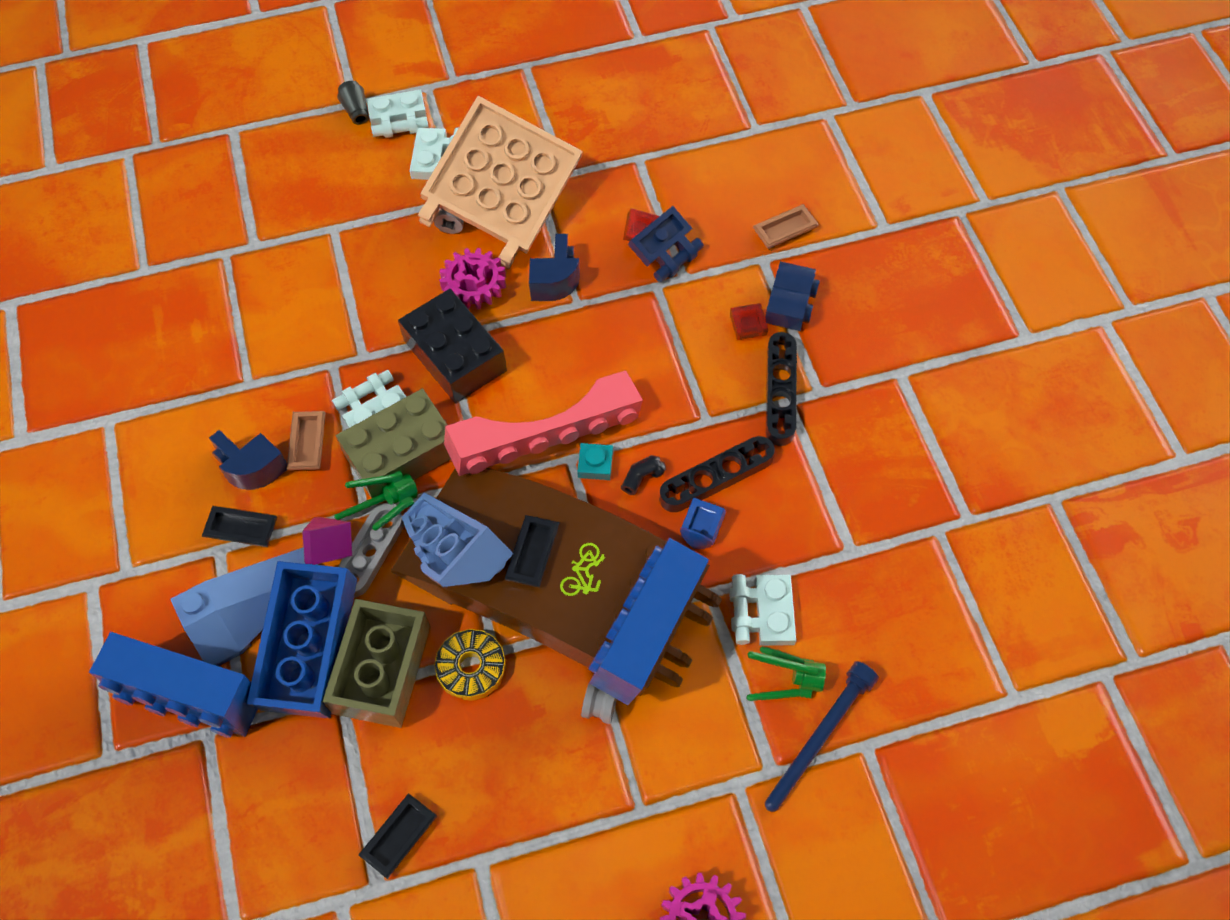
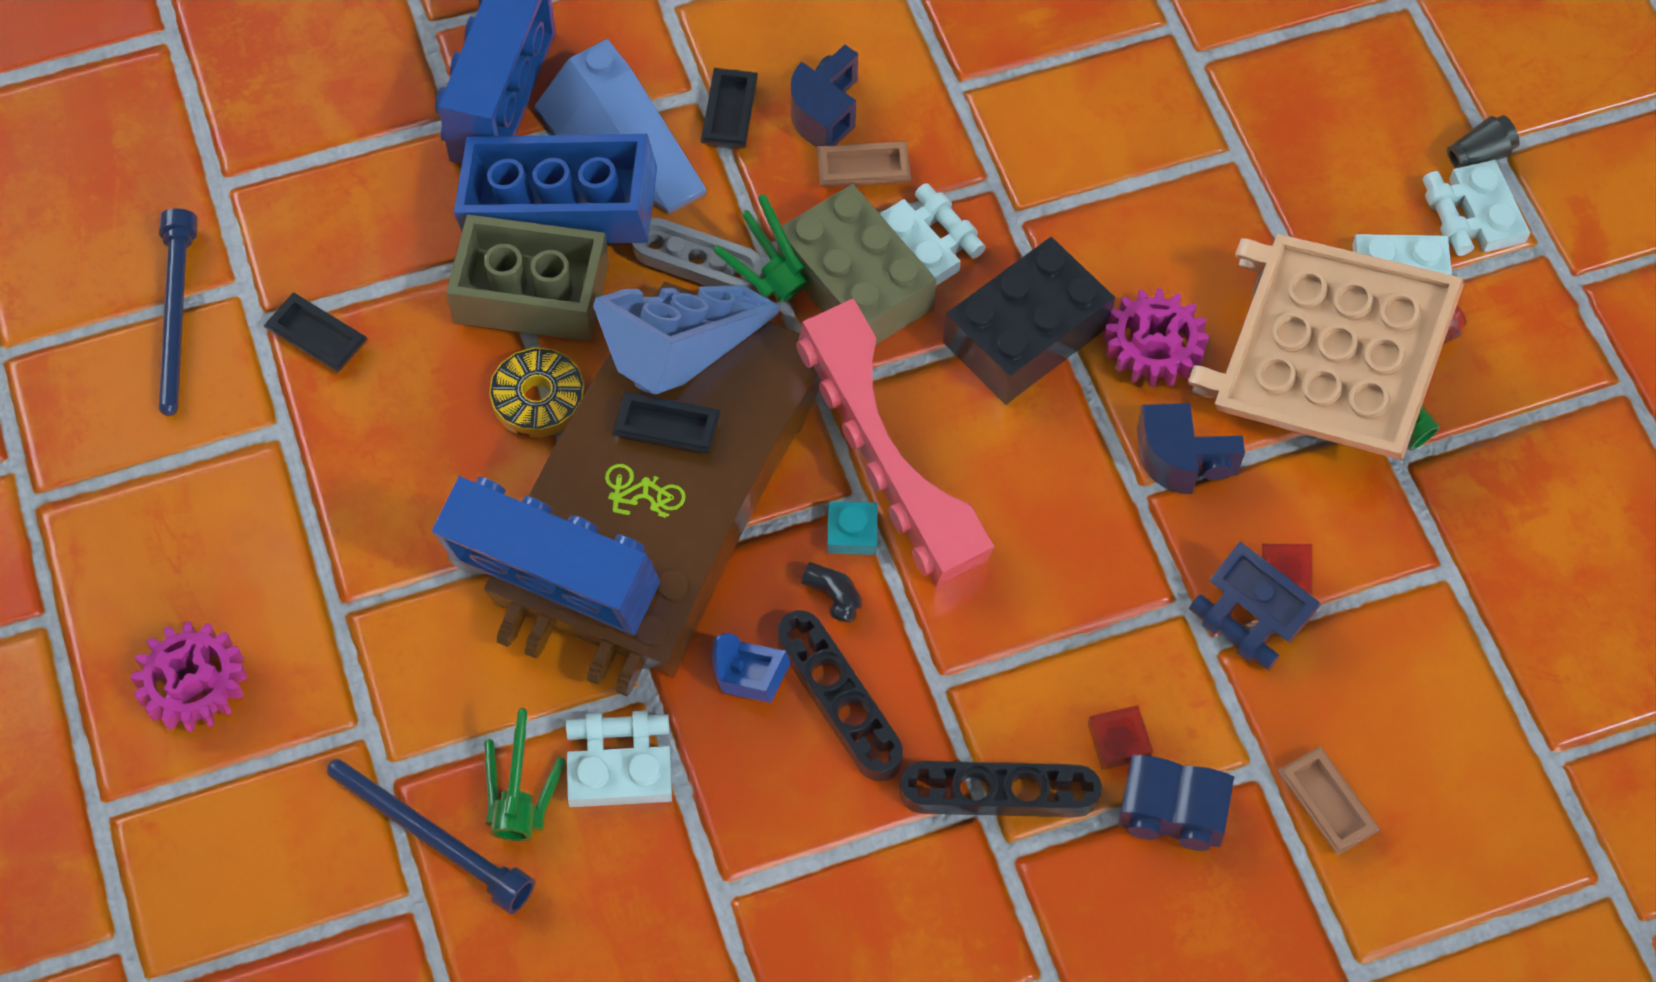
camera: 85 degrees right, 0 degrees up
(326, 540) = (691, 188): magenta slope -> none

